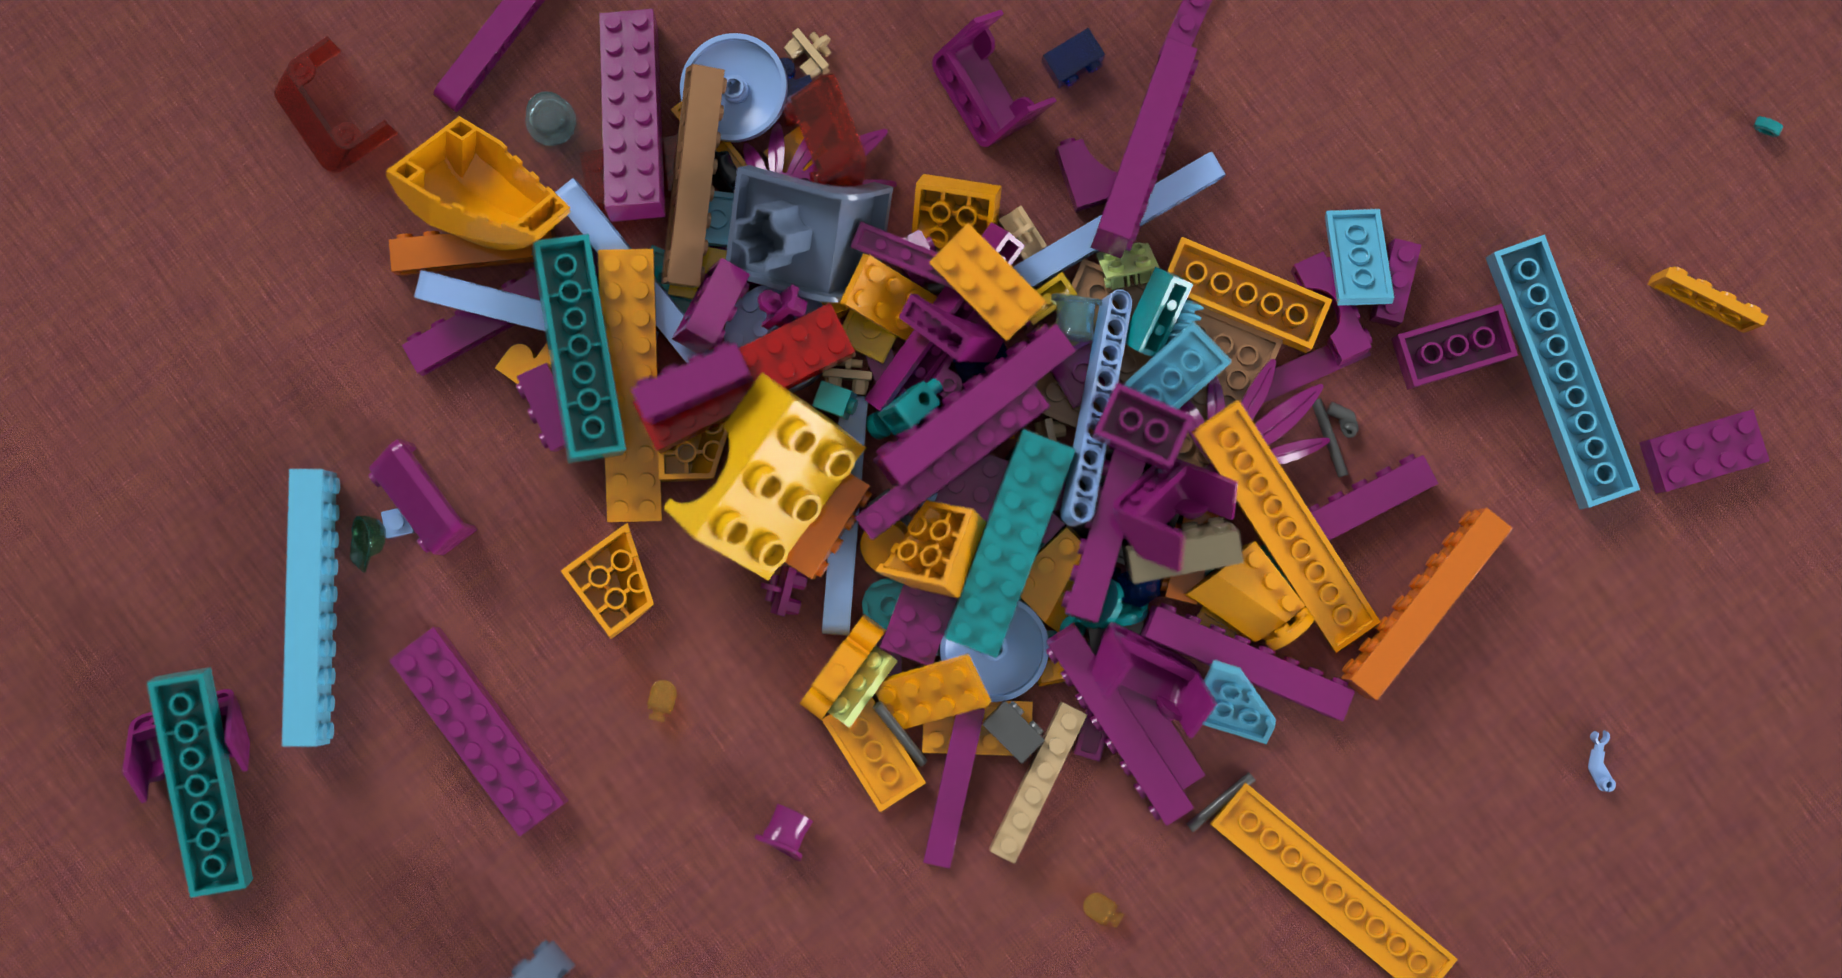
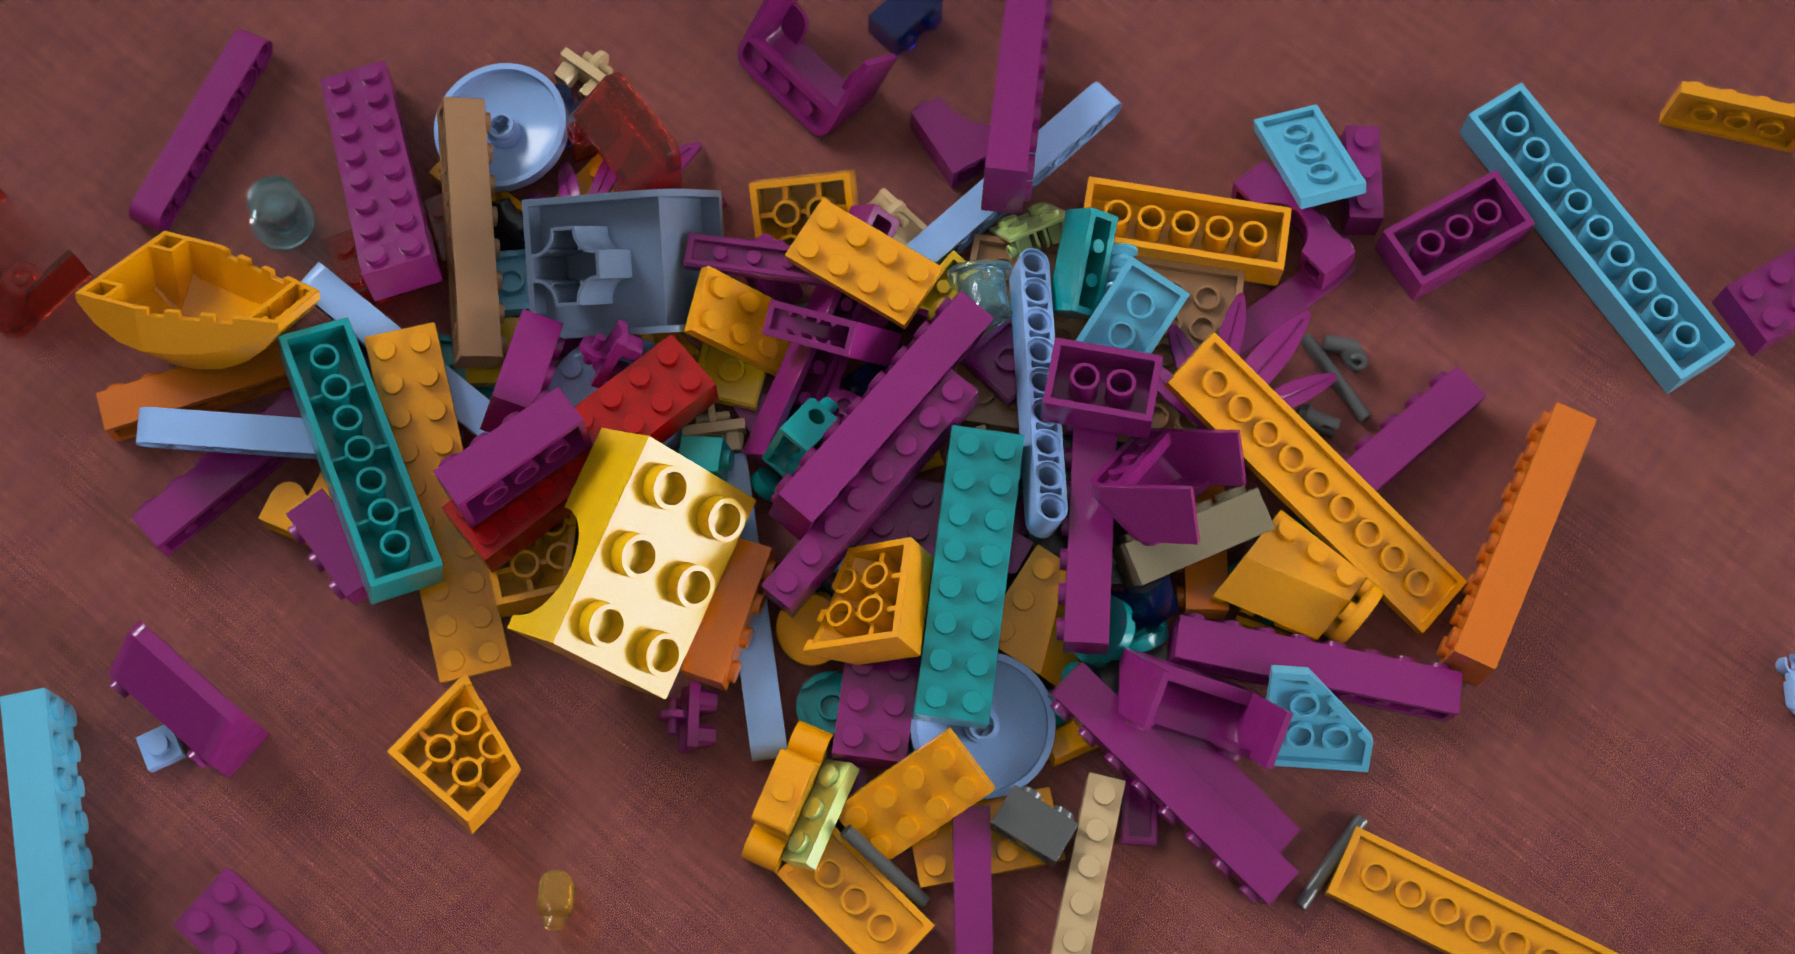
camera: 10 degrees left, 15 degrees down
(366, 541) = (122, 776): clear green cap -> none
(1305, 470) = (1318, 420): none -> dark grey pin

